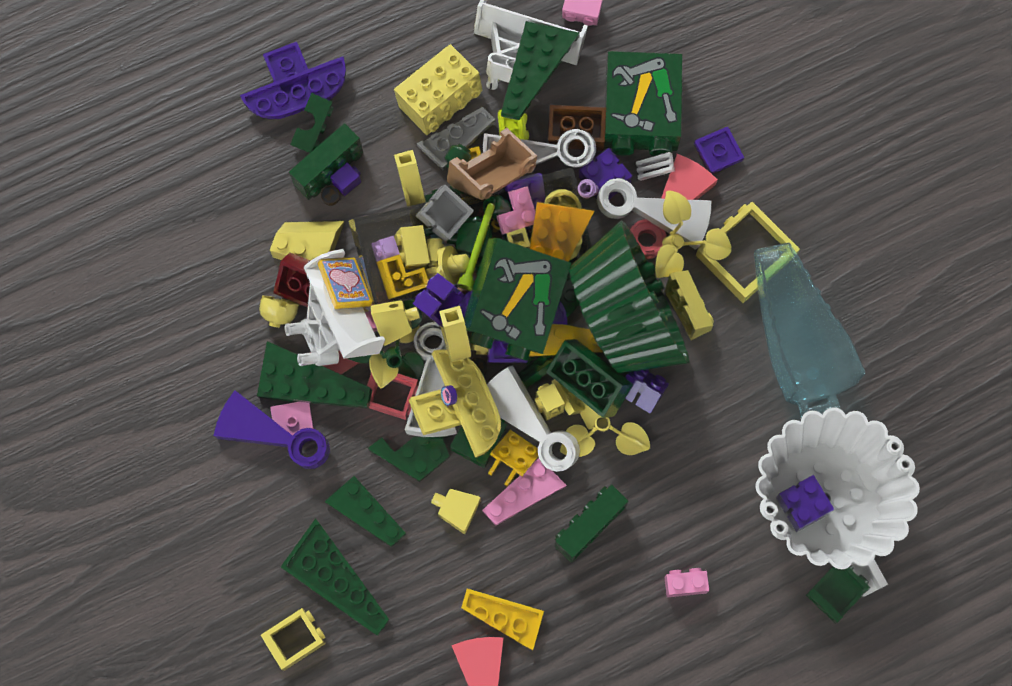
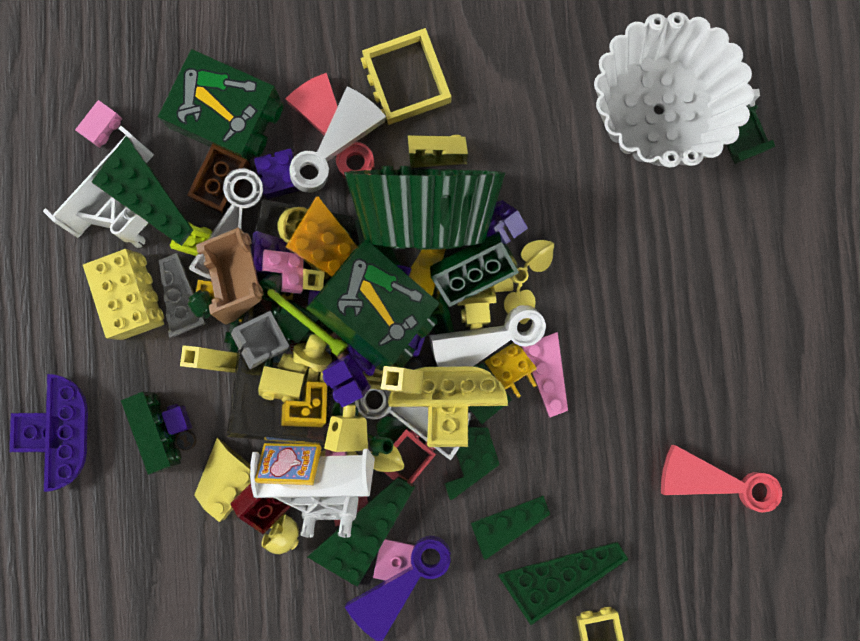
camera: 65 degrees left, 10 degrees up
(319, 108) = (119, 442): dark green arch -> none
(385, 248) = (272, 411): lavender brick -> none
(449, 395) = (439, 406): dark purple tile -> none
(457, 508) = (540, 440): light yellow torso -> none
(506, 616) = (654, 435): yellow wing -> none
(585, 186) = (288, 198): lavender cone -> none
(591, 523) = (604, 324): dark green brick -> none
(641, 163) = (285, 139): white tile -> none
(676, 210) = (348, 121): light yellow plant -> none
(686, 583) = (688, 262): bright pink brick -> none
(719, 150) = (297, 59): dark purple plate -> none
(803, 338) = (511, 60): clear light blue windscreen -> none
(807, 502) = (663, 124): dark purple piece -> none

